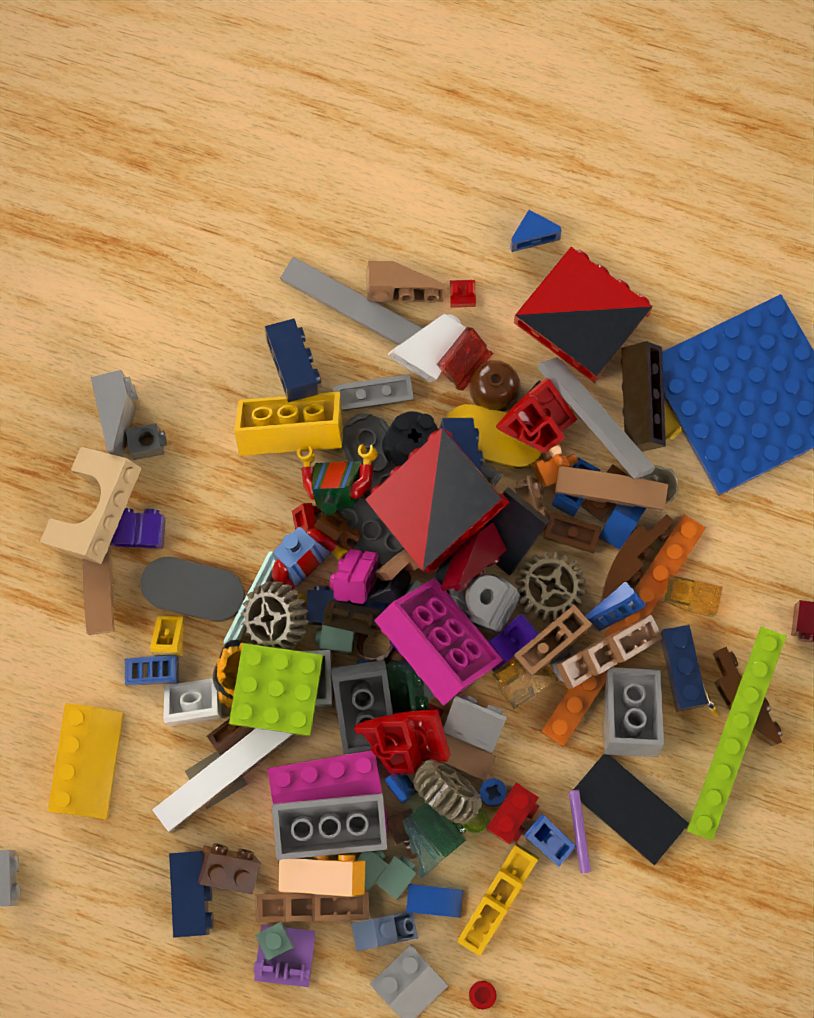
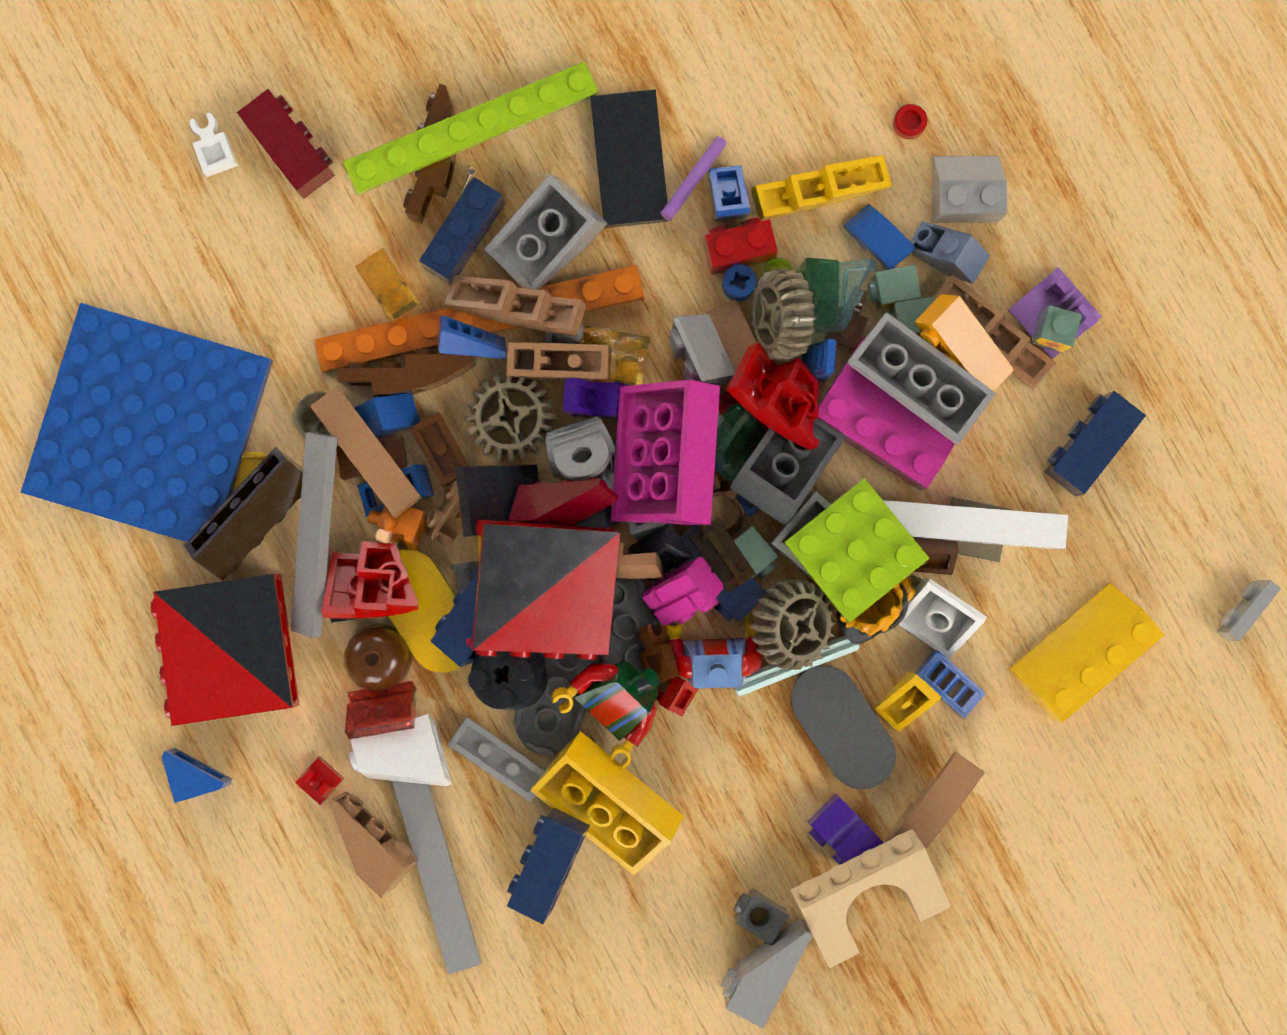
camera: 140 degrees left, 10 degrees up
(229, 869) = (1040, 431): reddish brown bracket -> none

